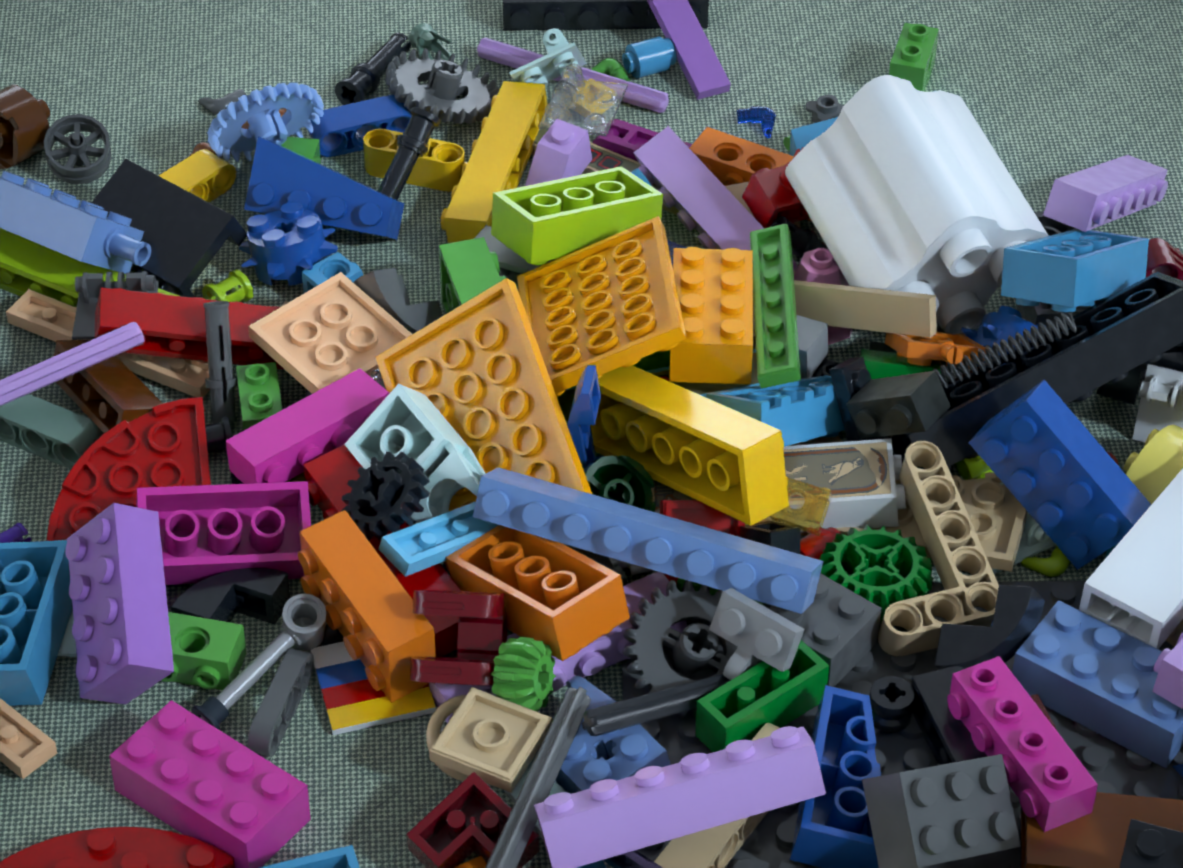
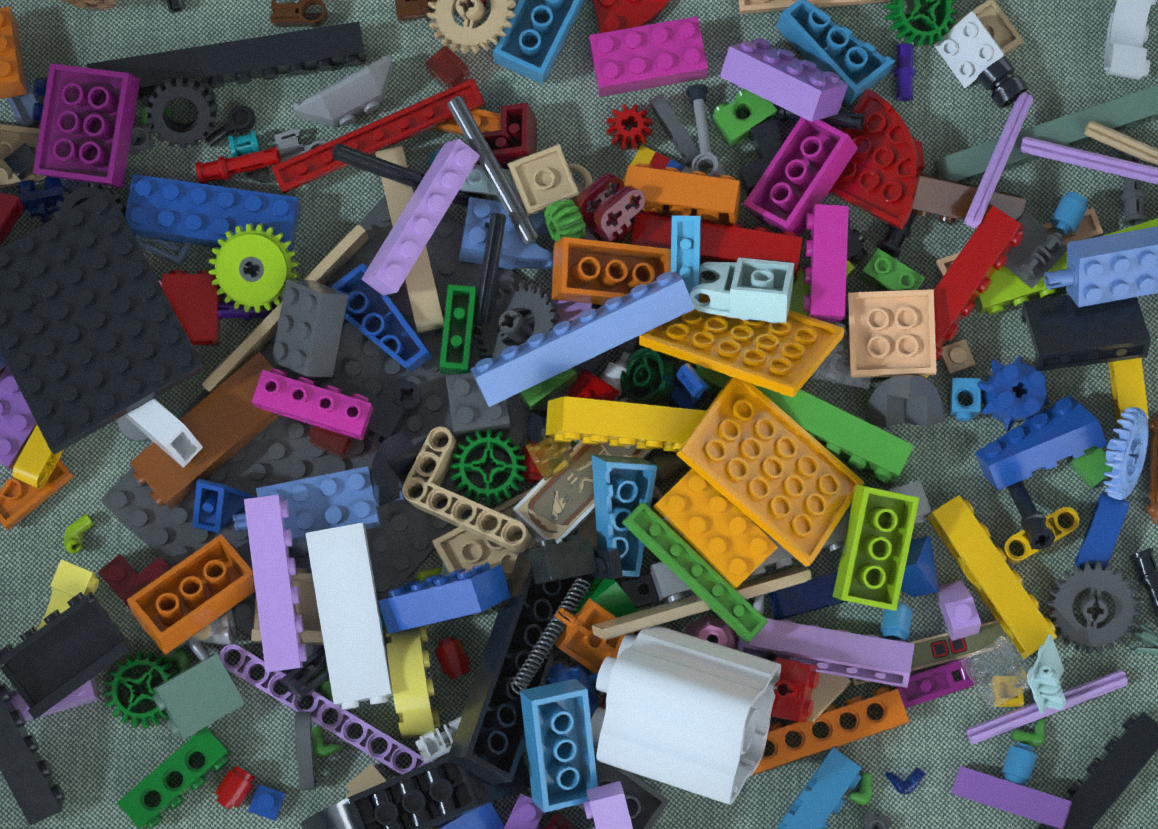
camera: 135 degrees right, 35 degrees up
(36, 309) = (1069, 213): none -> dark azure brick
(221, 378) = (925, 266): dark grey pin -> none
(230, 284) = (1009, 338): lime bush -> none
(323, 746) = (638, 131): none -> red gear
(386, 495) = (730, 244): black gear -> none
(756, 633) = (481, 338): light grey plate -> none

